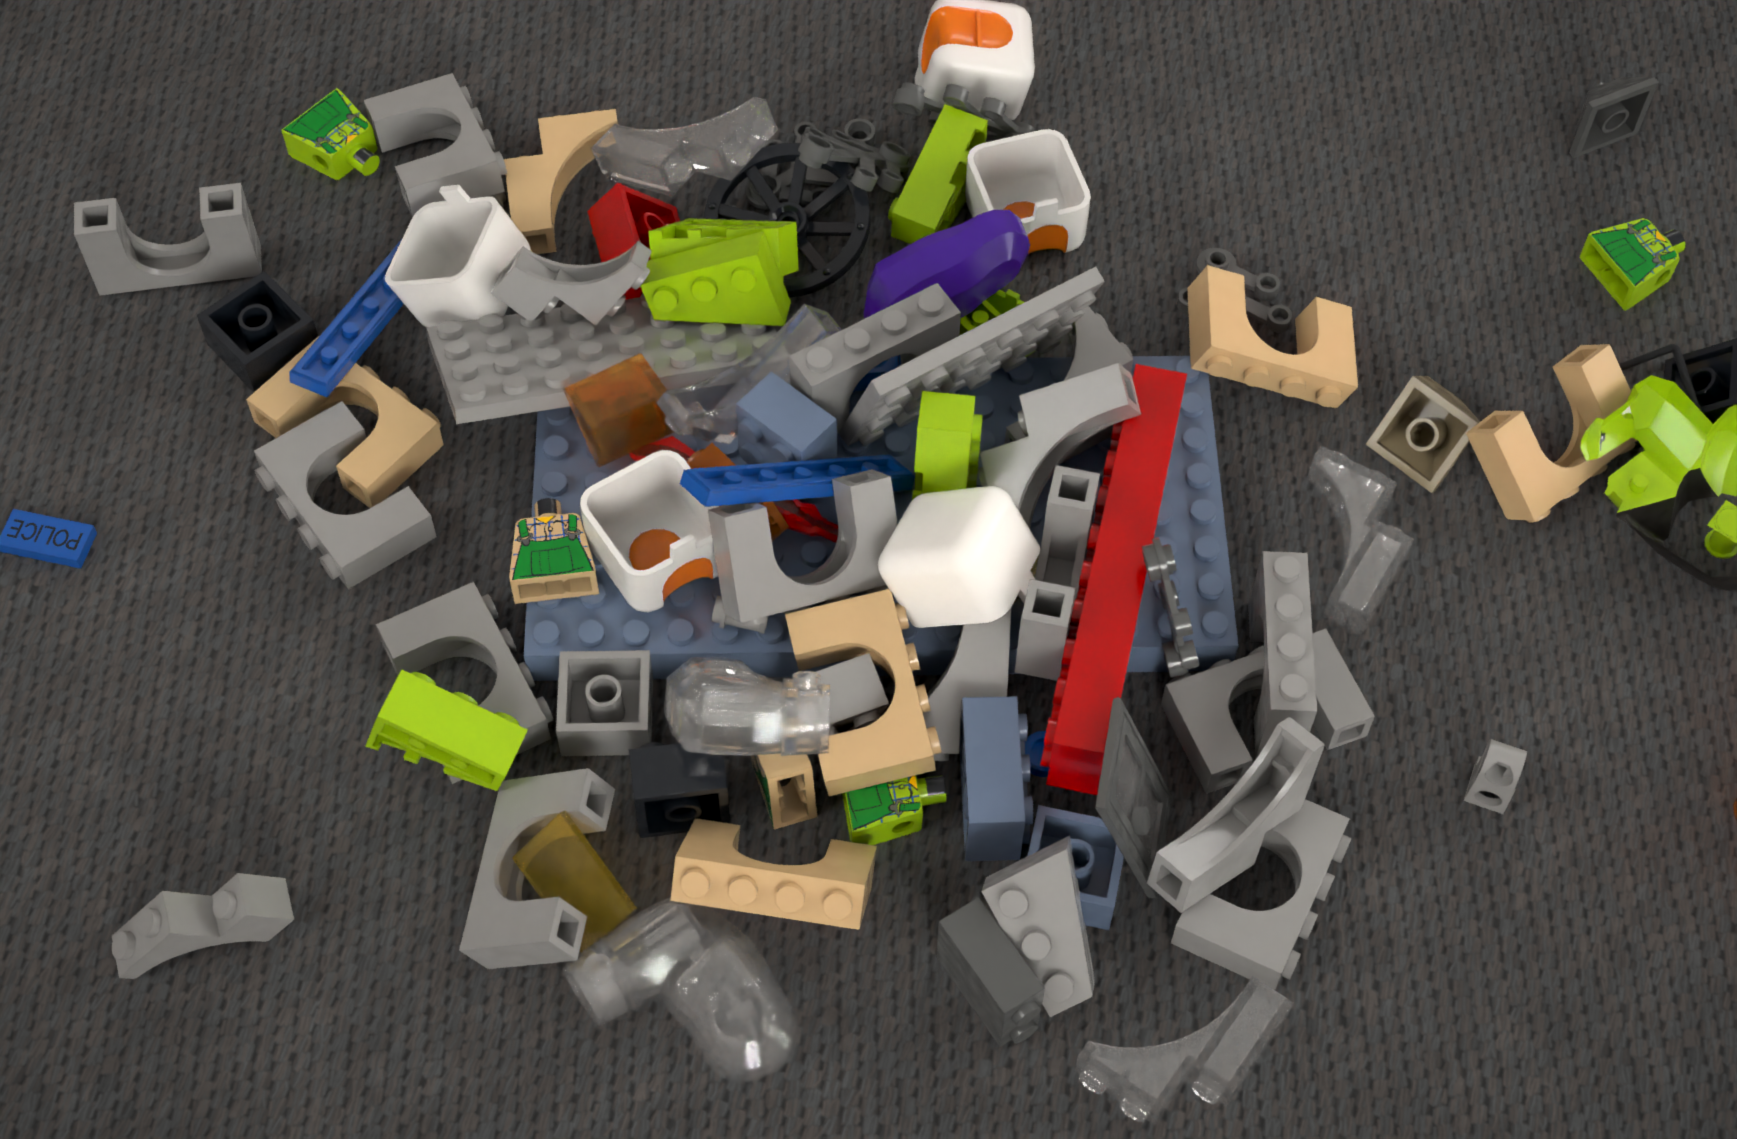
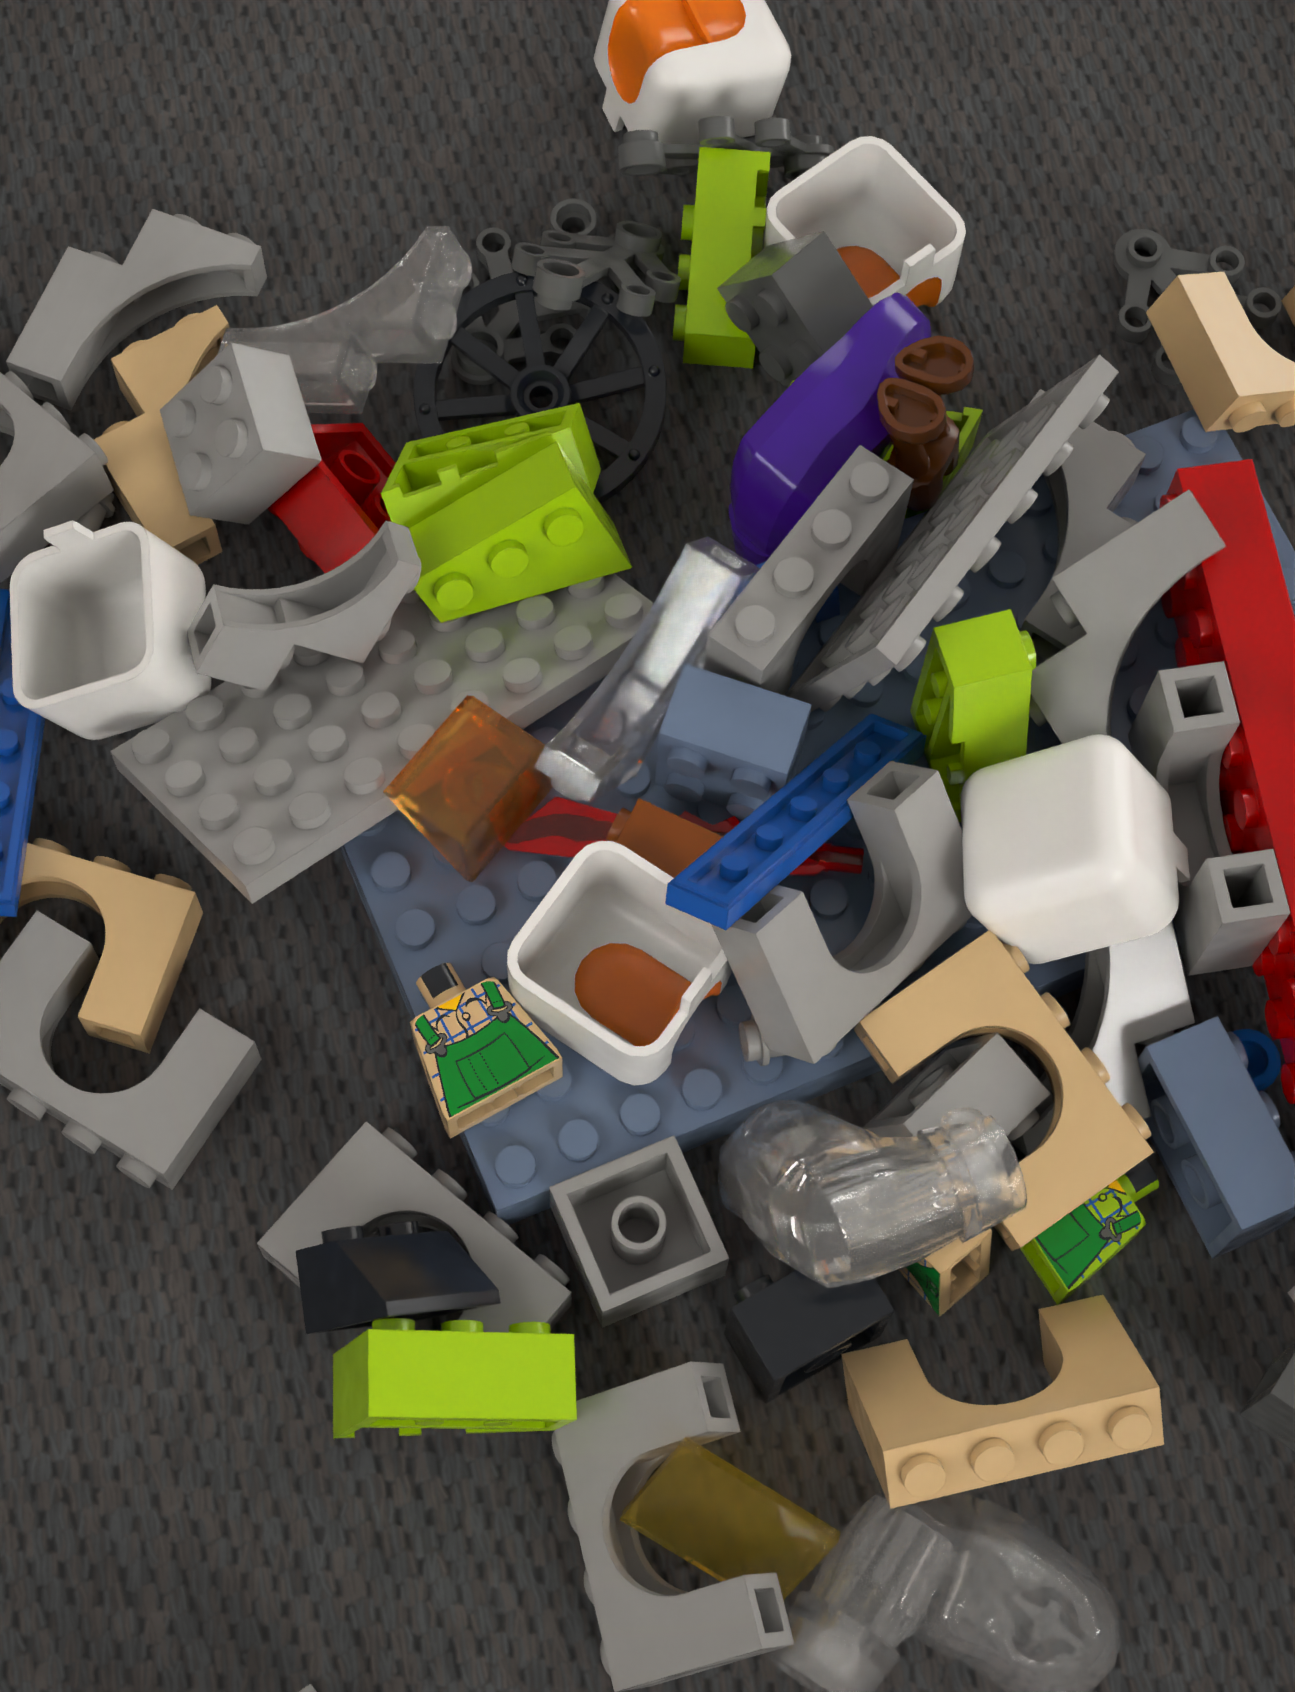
camera: 25 degrees left, 10 degrees up
(447, 661) = (387, 1276): none -> black slope
(551, 89) = (100, 302): none -> light grey arch
(587, 178) = (240, 434): none -> light grey brick
(956, 198) = (794, 303): none -> dark grey brick
(990, 272) = (916, 417): none -> reddish brown piece

